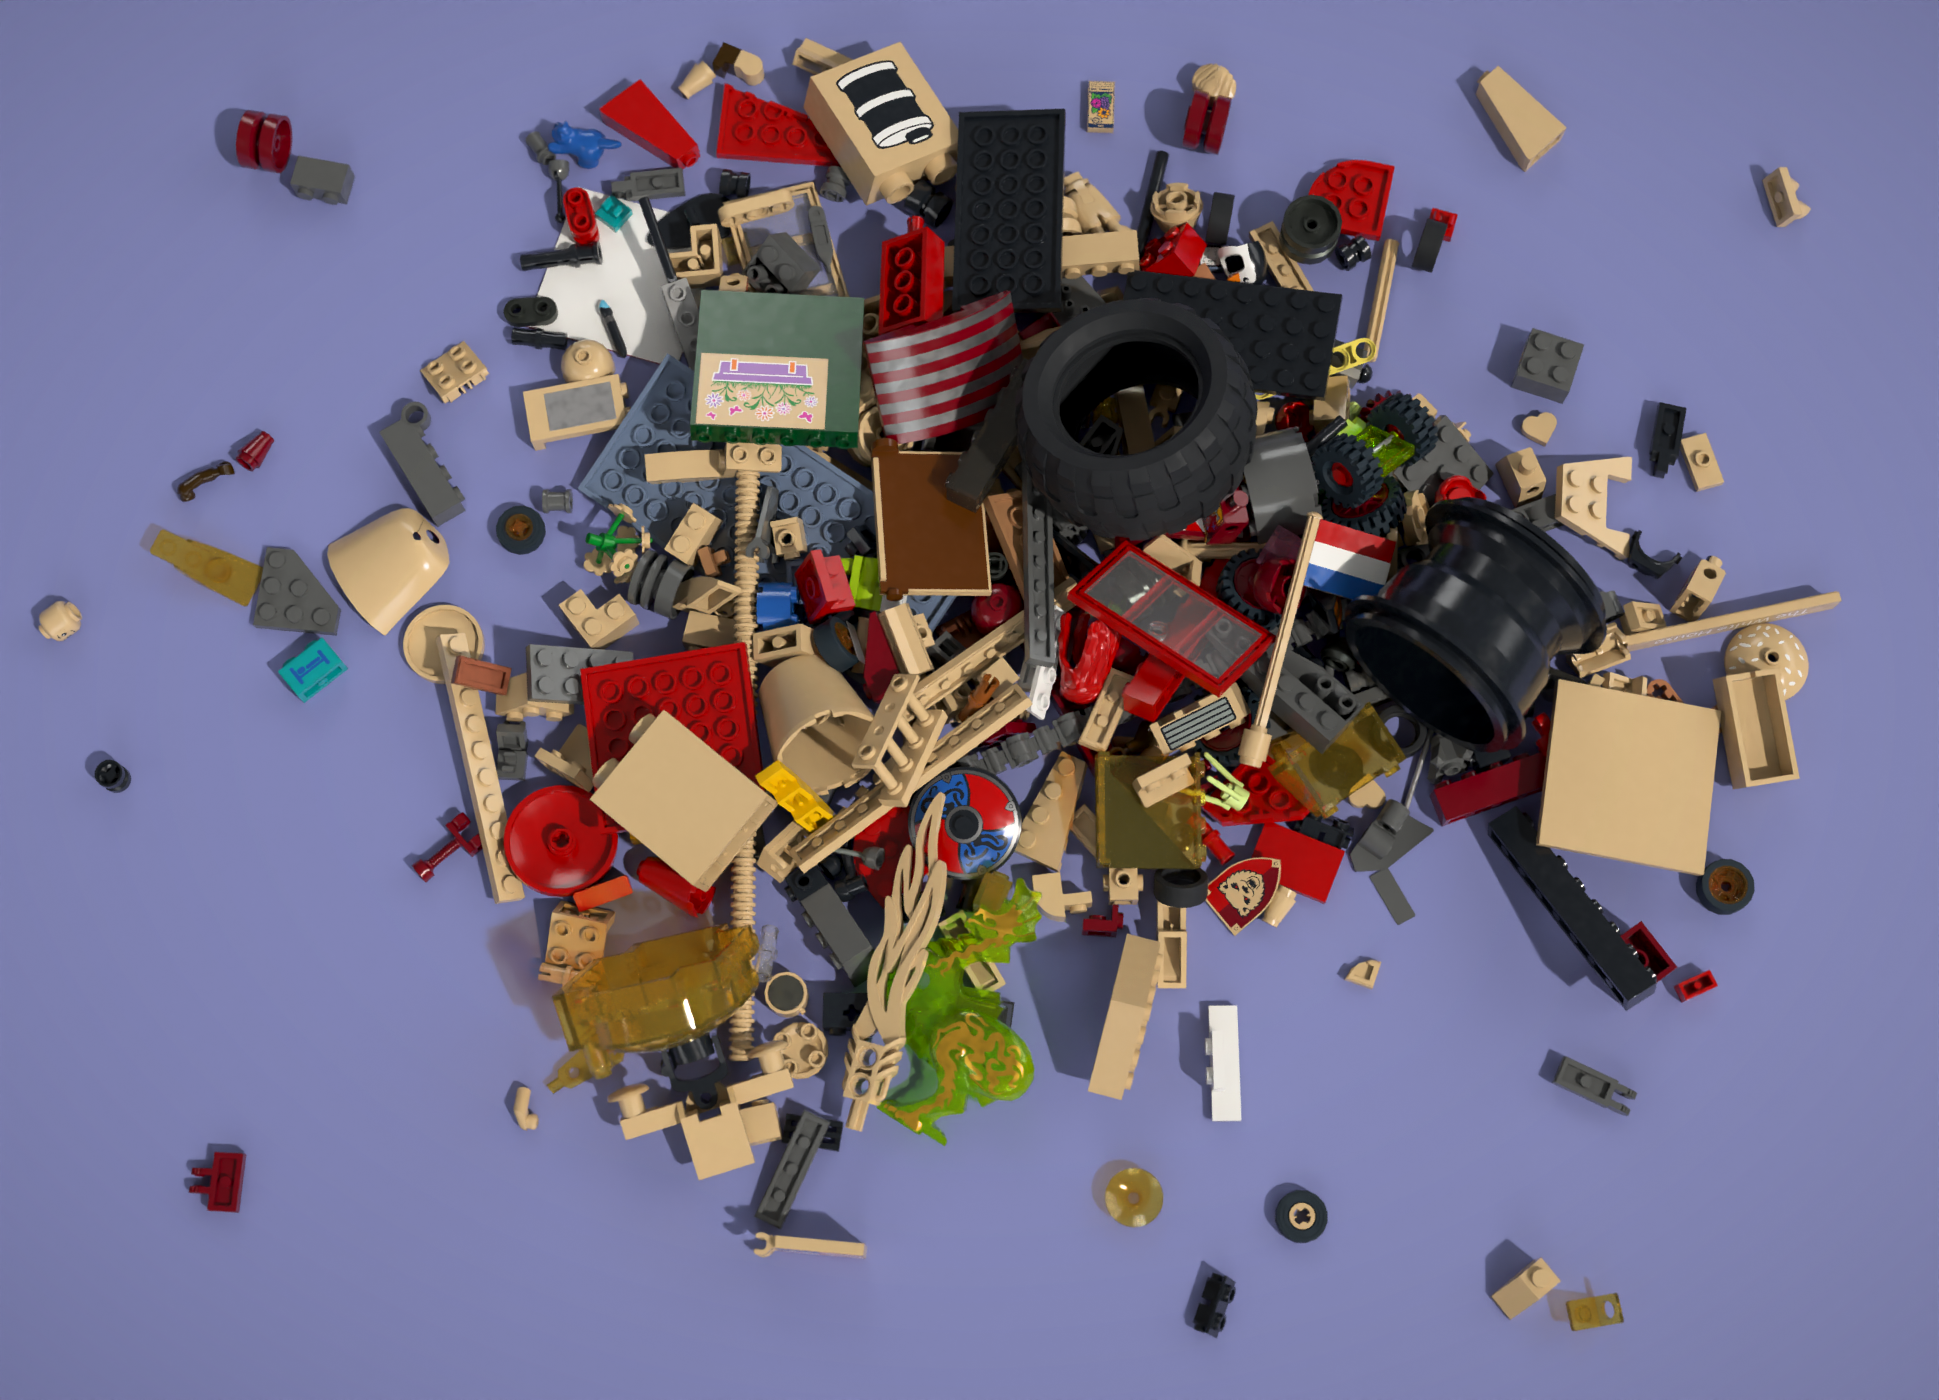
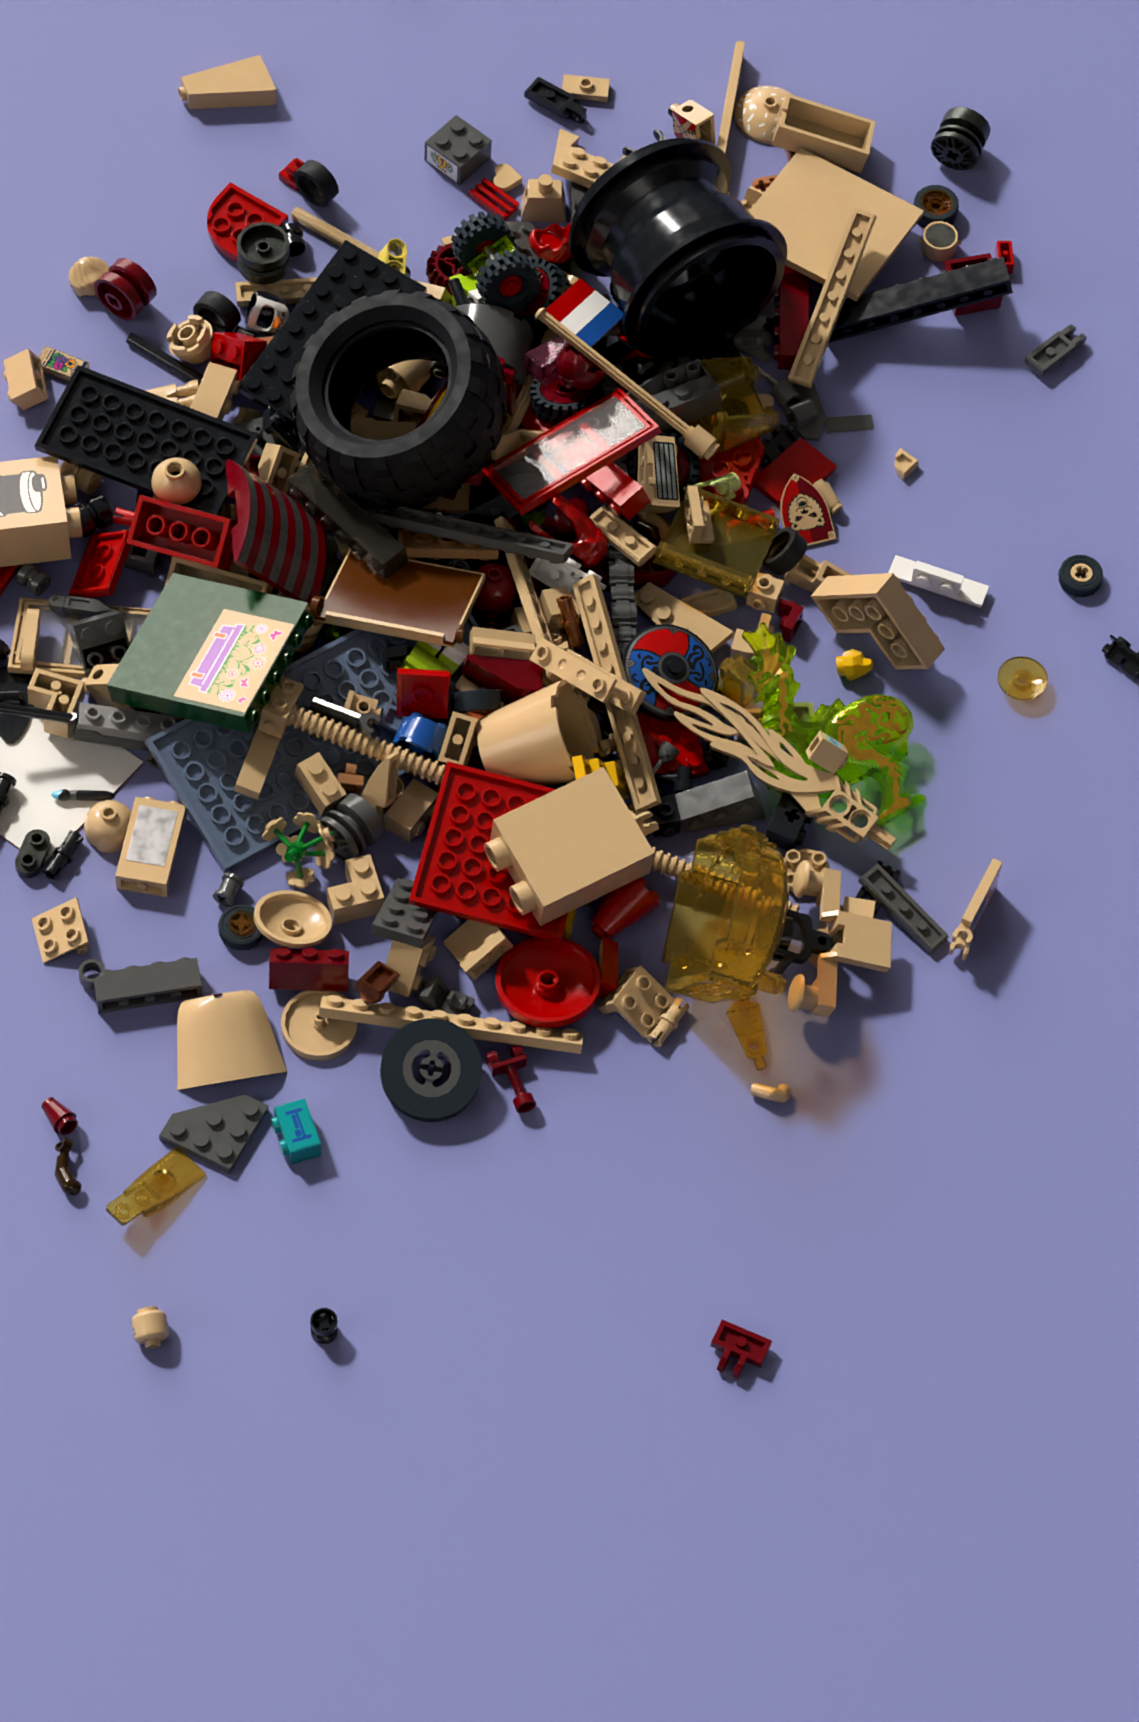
camera: 75 degrees left, 15 degrees down
(388, 766) = (437, 1039): none -> black wheel
(489, 609) = (309, 969): none -> dark red brick
(547, 558) = (292, 919): none -> tan dish
(866, 236) = (101, 565): none -> red tile
(919, 1020) = (827, 752): none -> tan brick
(971, 264) = (176, 488): none -> tan piece
(1061, 79) = (25, 379): none -> tan brick
(1073, 1009) = (853, 664): none -> yellow rock
(1513, 407) = (496, 197): none -> red tile
(1524, 816) = (832, 298): none -> tan tile
(1680, 907) = (939, 241): none -> piece
(1828, 880) = (960, 138): none -> pearl dark grey wheel

